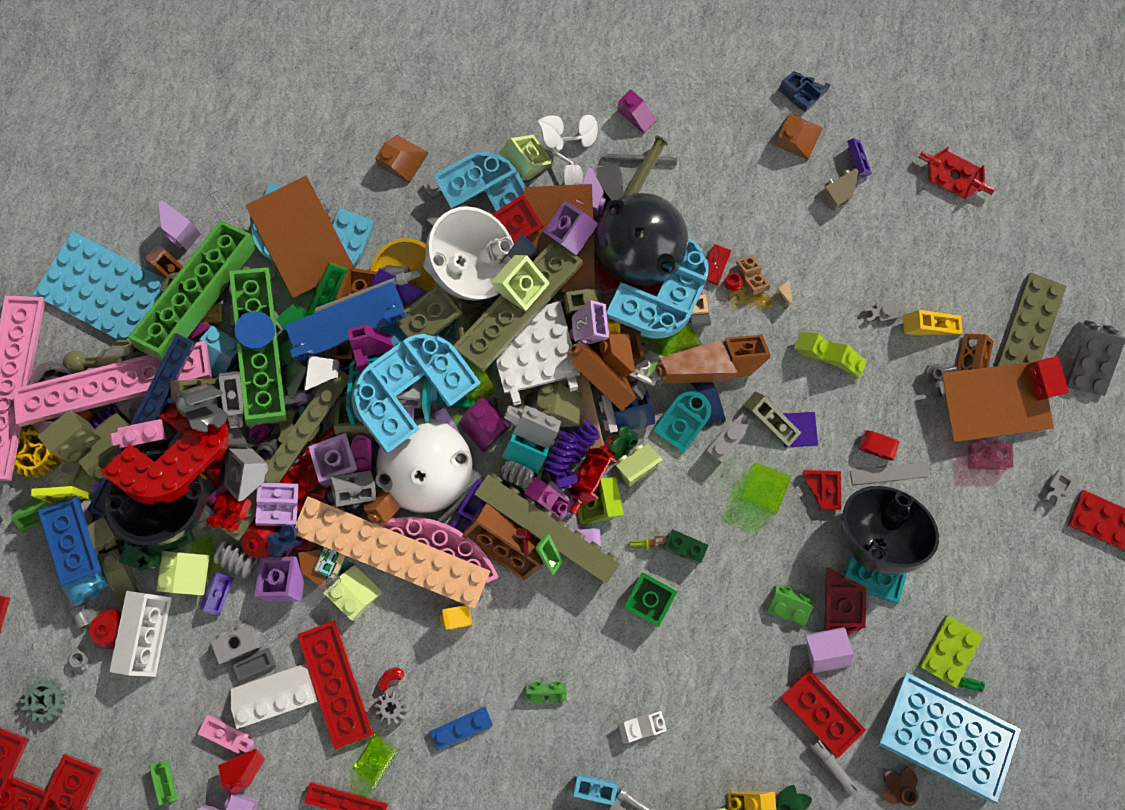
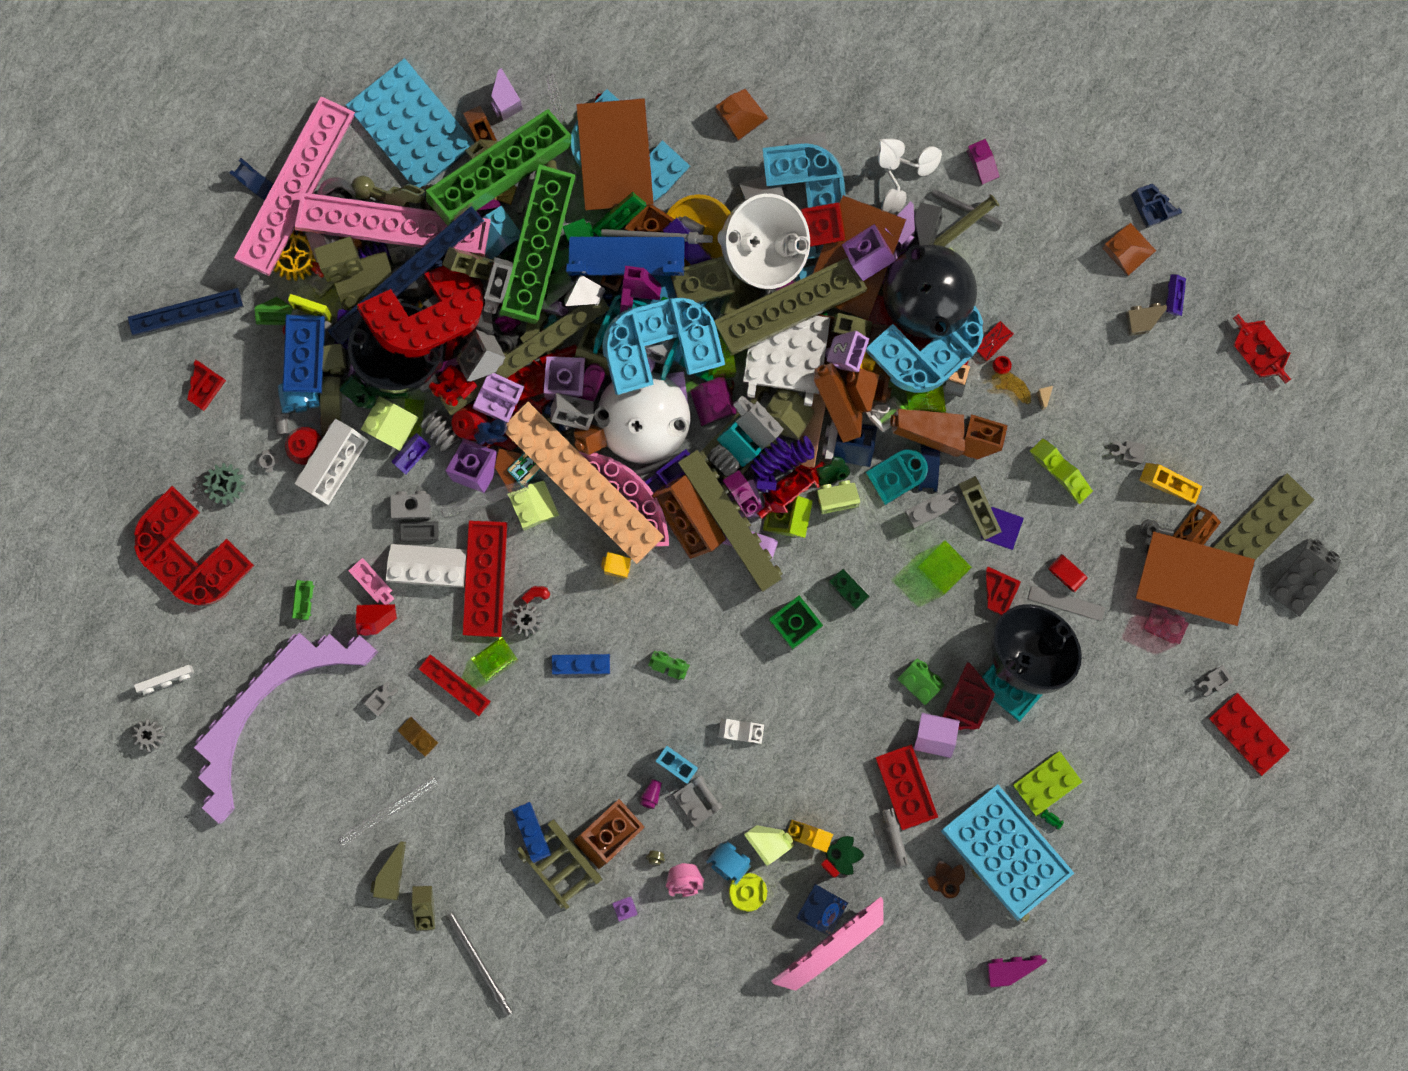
camera: 25 degrees right, 5 degrees up
(138, 433) = (400, 282): bright pink hinge -> none
(206, 409) = (466, 283): dark grey piece -> none
(254, 330) = (541, 230): blue tile -> none
(432, 187) = (757, 154): light grey plate -> none
(520, 282) = (800, 286): yellowish green slope -> none
(523, 247) = (814, 257): dark blue slope -> none
(524, 534) = (708, 518): dark red hand -> none
(526, 156) = (859, 162): yellowish green slope -> none
(549, 554) = (722, 543): bright green slope -> none
(638, 388) = (868, 429): dark grey slope -> none
(647, 543) = (816, 572): piece -> none
(751, 275) = (1022, 365): medium nougat slope -> none
(1047, 378) = (1250, 577): red brick -> none

